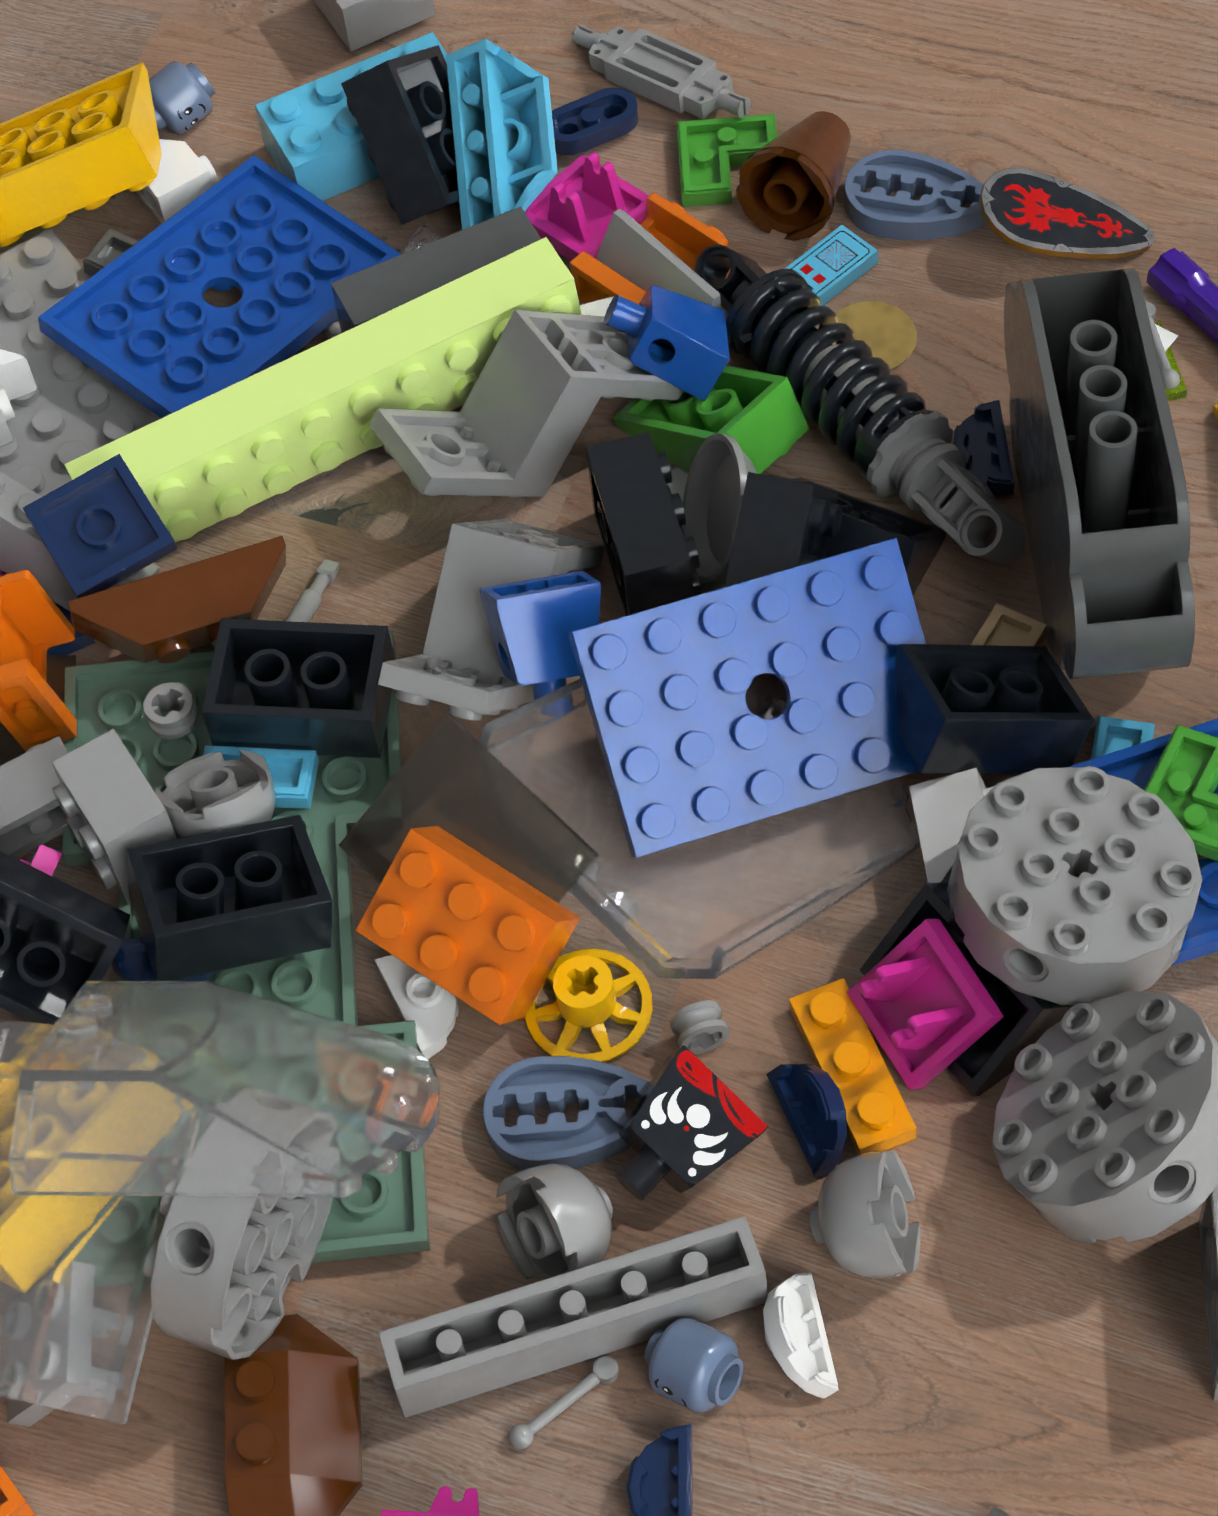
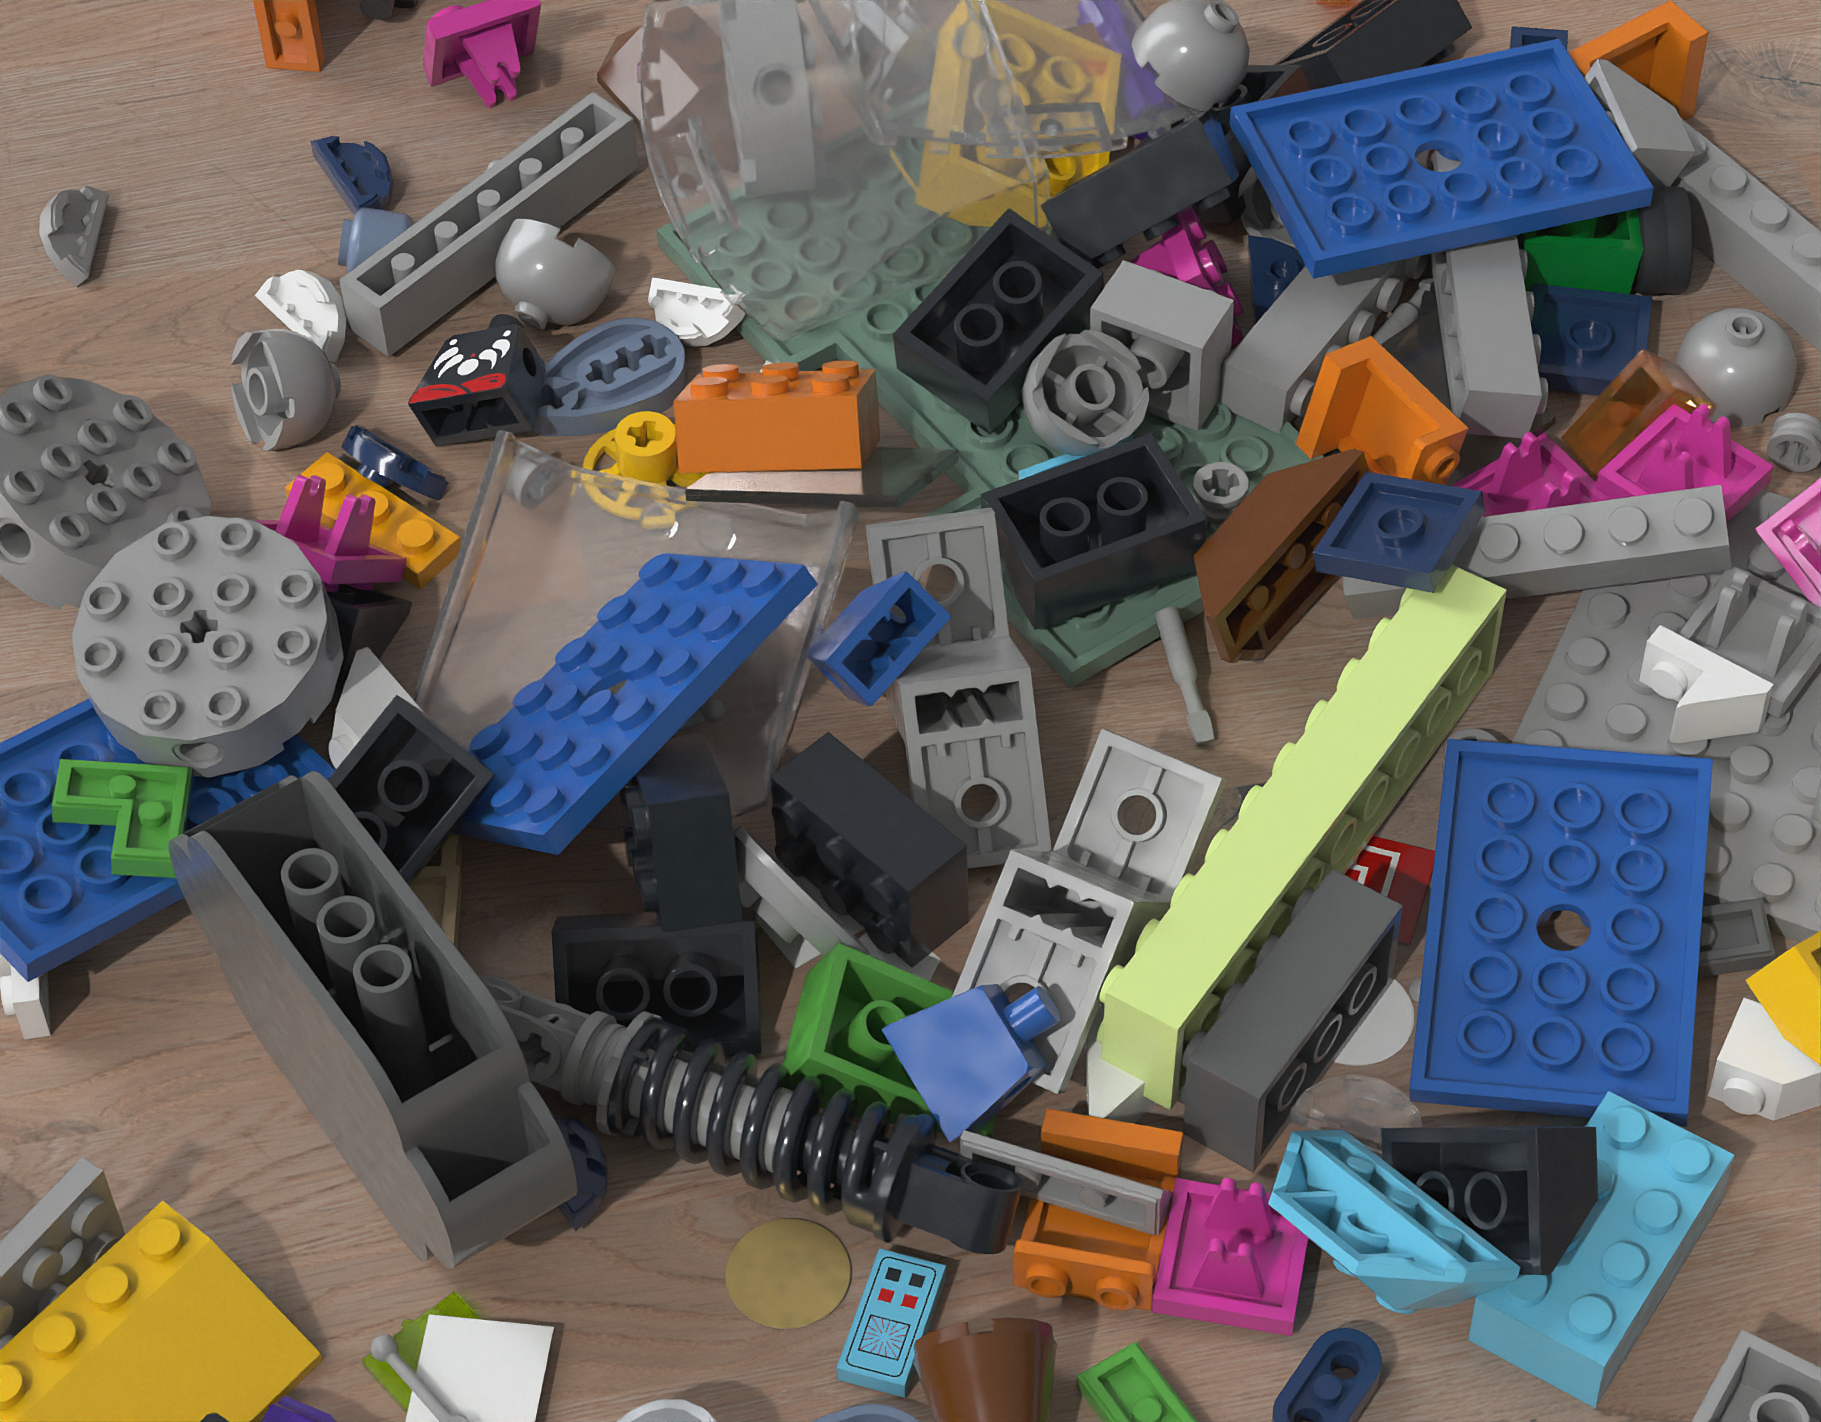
camera: 145 degrees right, 5 degrees down
(459, 1141) = (693, 311): none -> white plate

